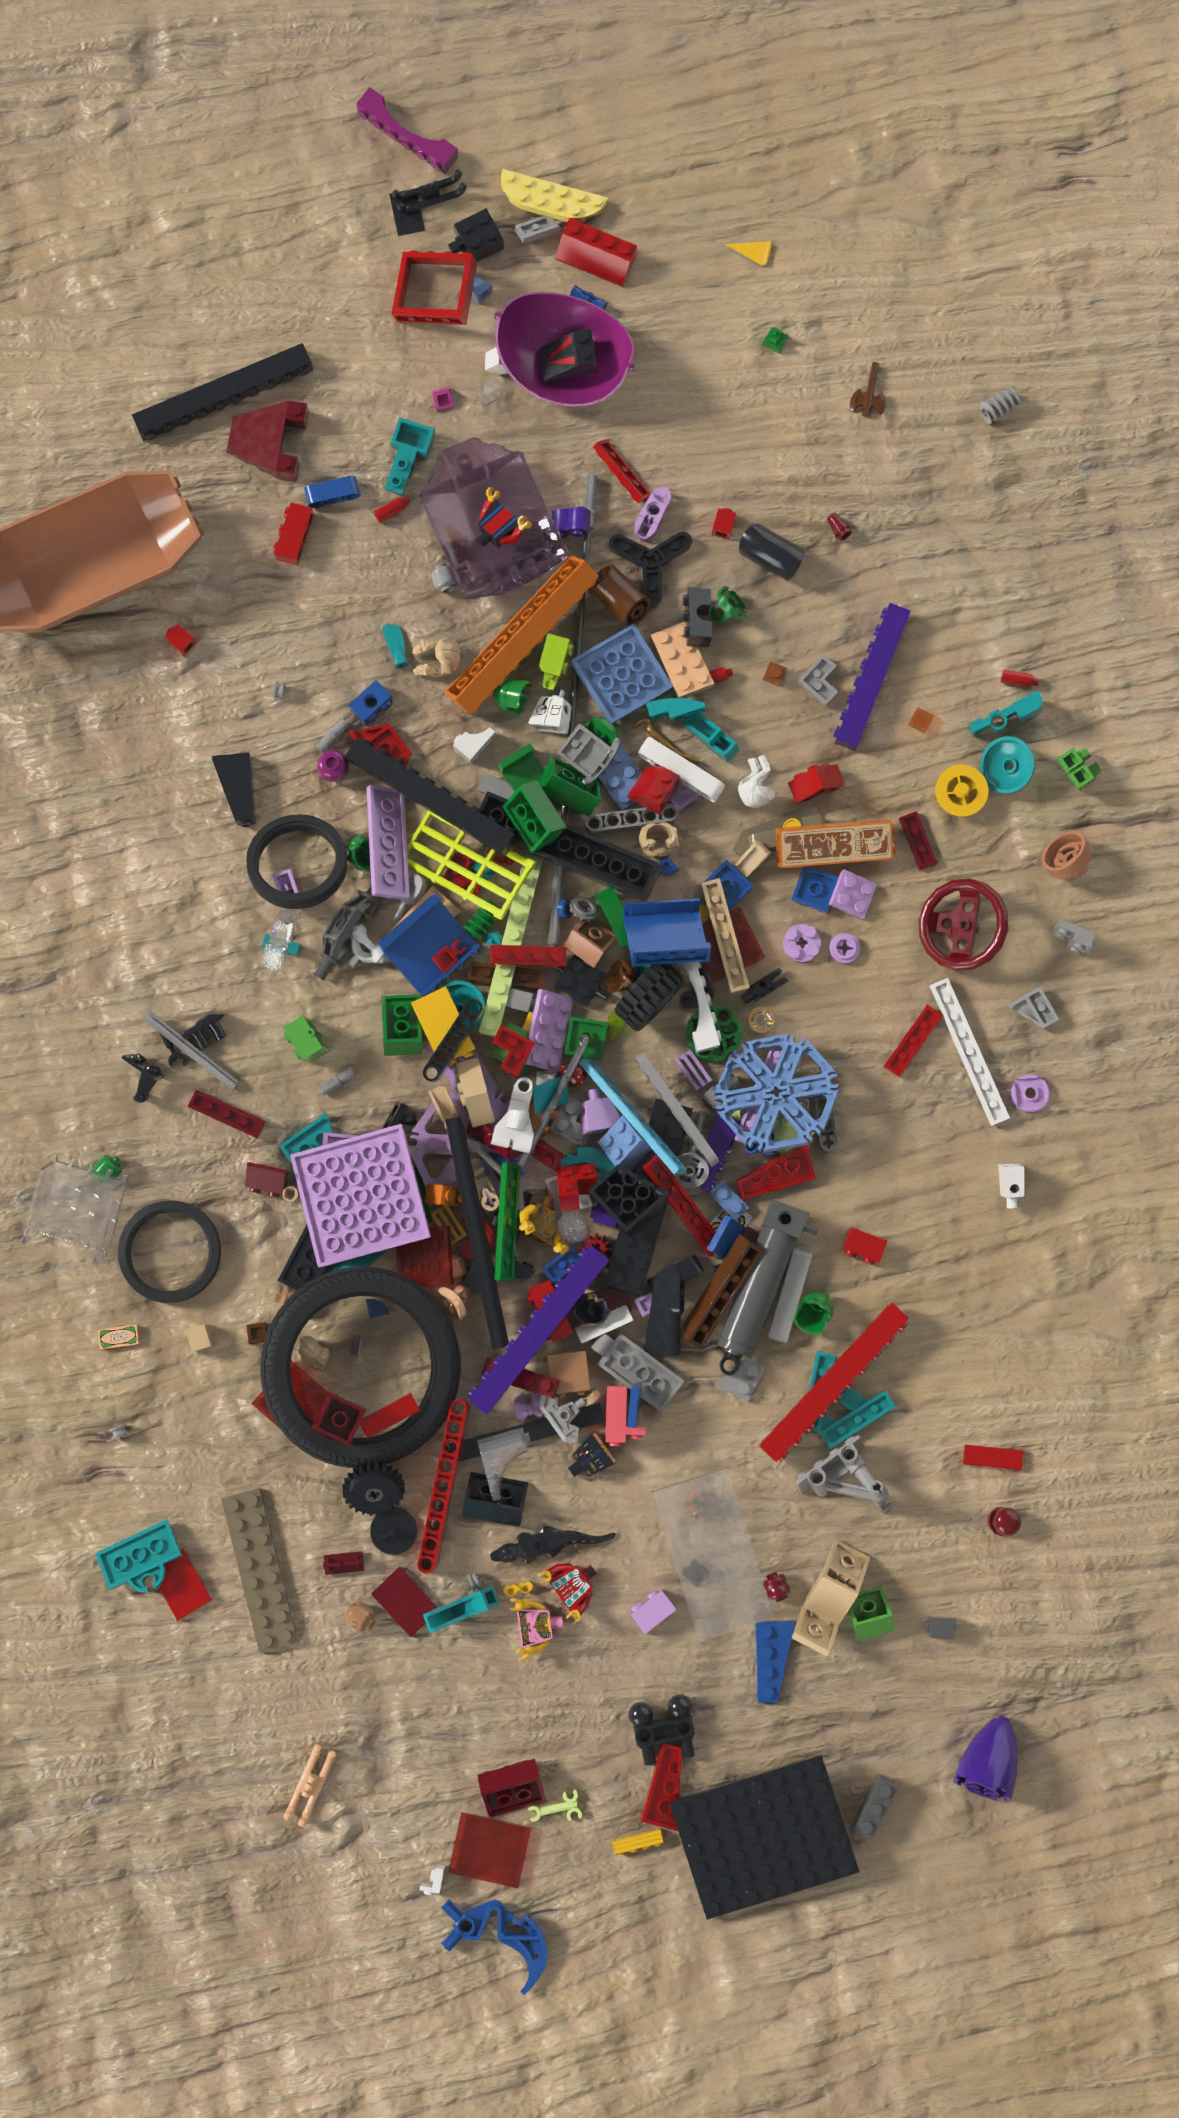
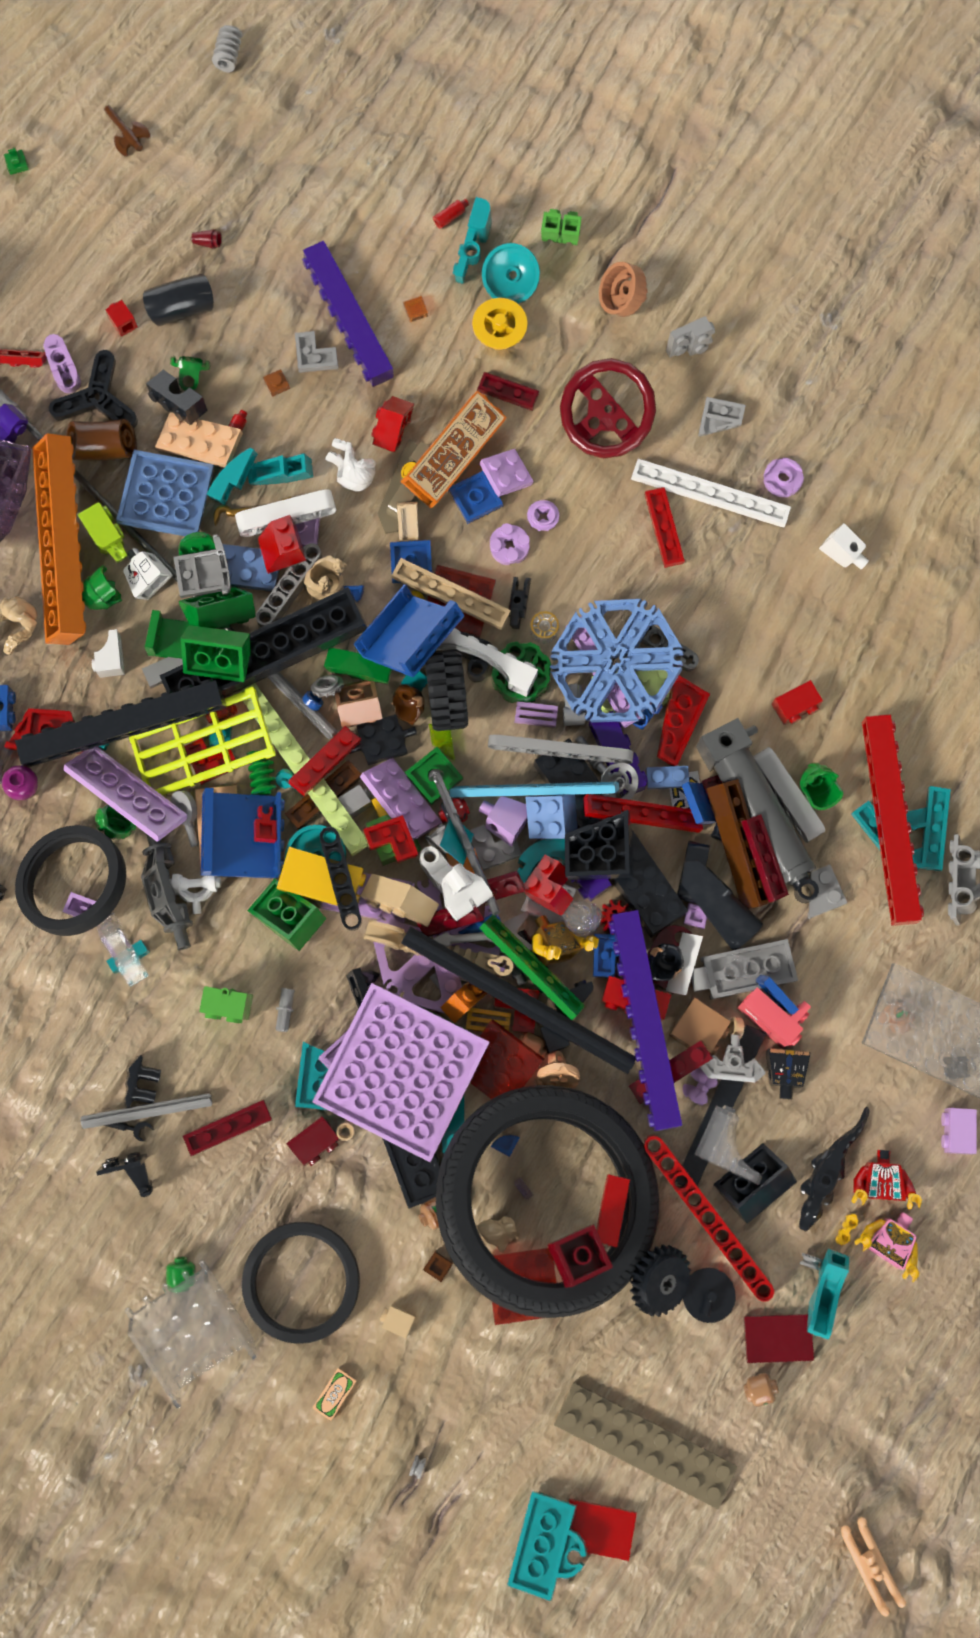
camera: 50 degrees left, 5 degrees down
(343, 1563) = (700, 1363): dark red hinge -> none
(723, 1316) = (765, 858): none -> dark red plate

